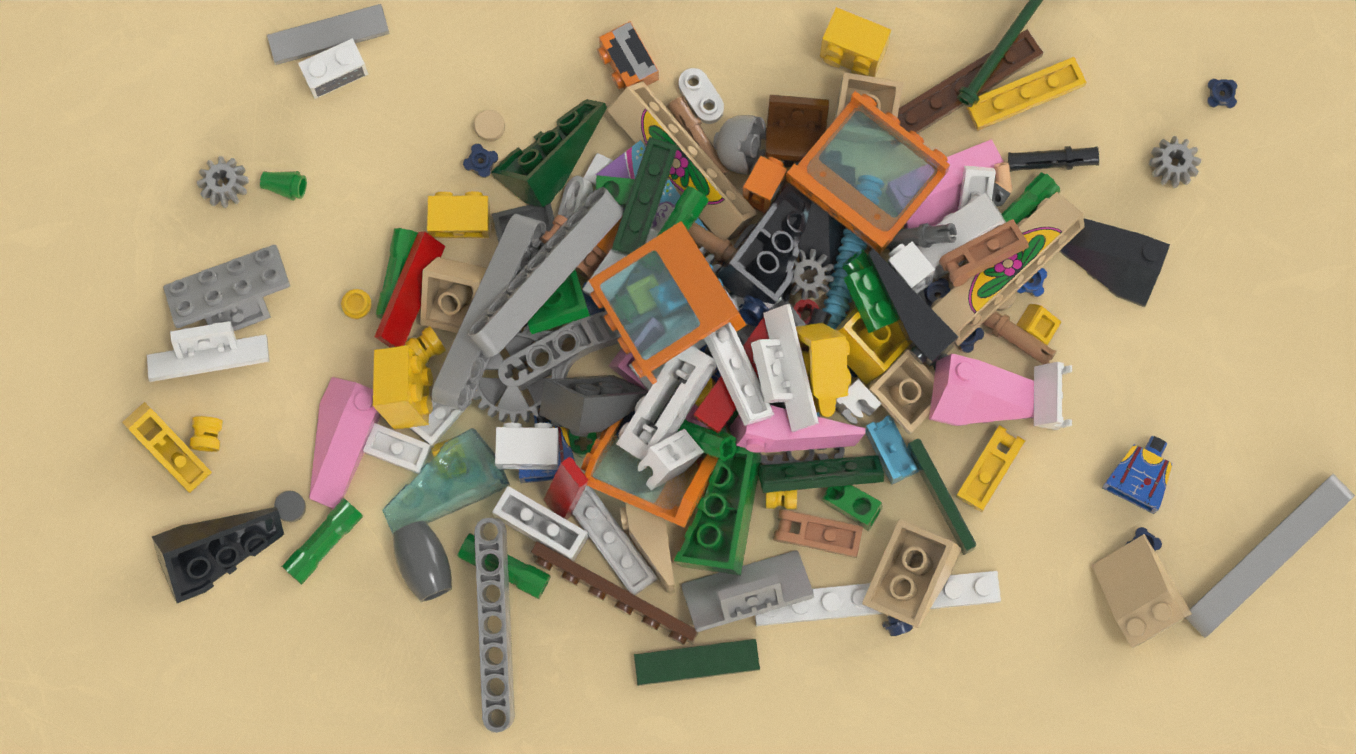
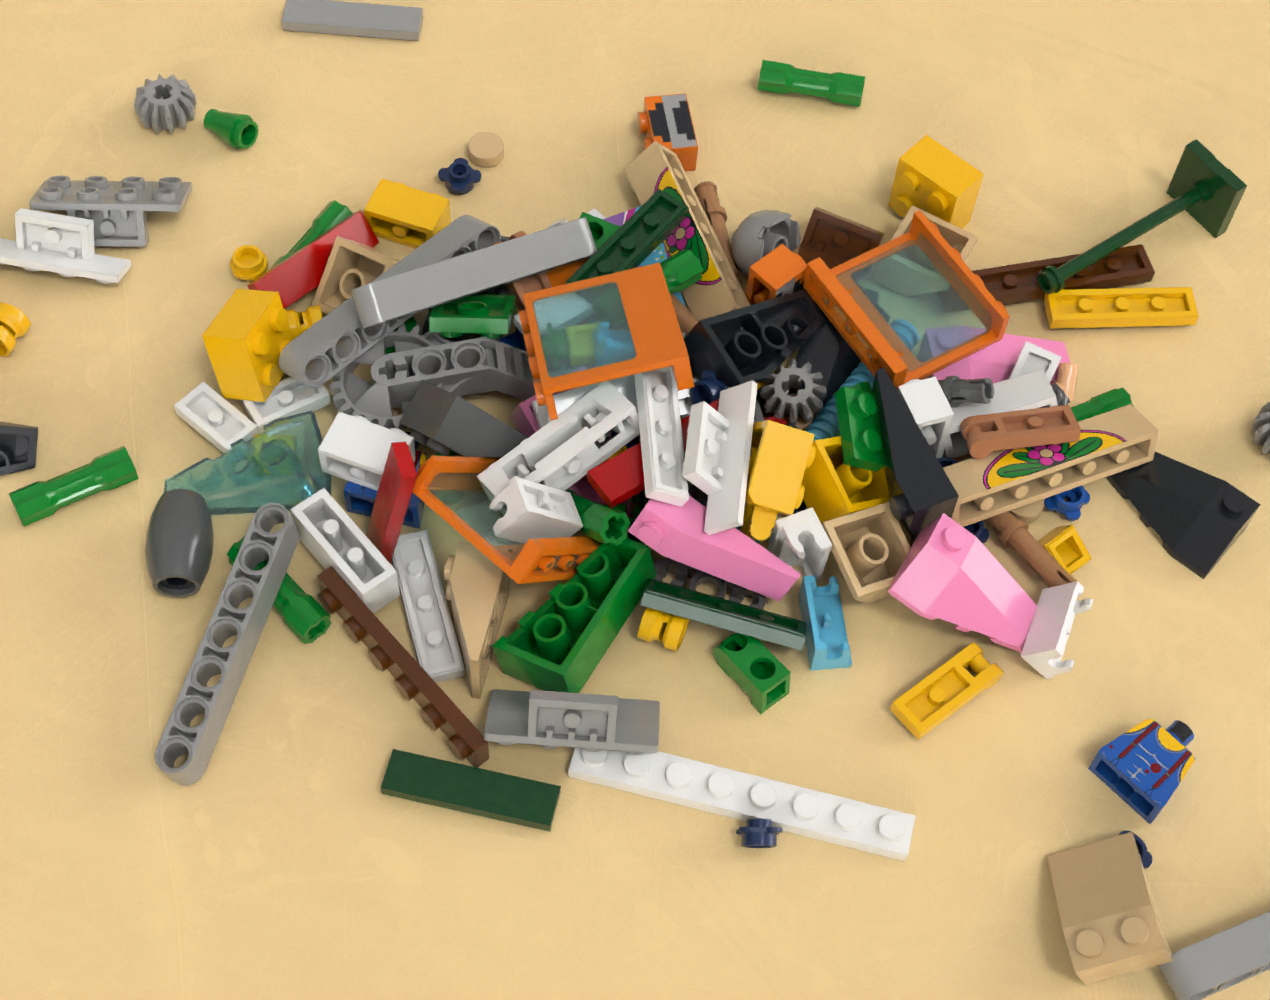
camera: 15 degrees right, 20 degrees down
(290, 506) = (58, 439): dark grey tile -> none
(333, 68) = (340, 42): white brick -> none
(341, 435) = (149, 396): bright pink wedge -> none
(545, 165) = (526, 202): dark green wedge -> none
(701, 94) = (736, 189): white plate -> none
(819, 533) = (694, 689): nougat plate -> none
(911, 573) = (801, 768): tan slope -> none
(941, 496) = (872, 701): dark green tile -> none
(1054, 158) = (1179, 391): black pin -> none

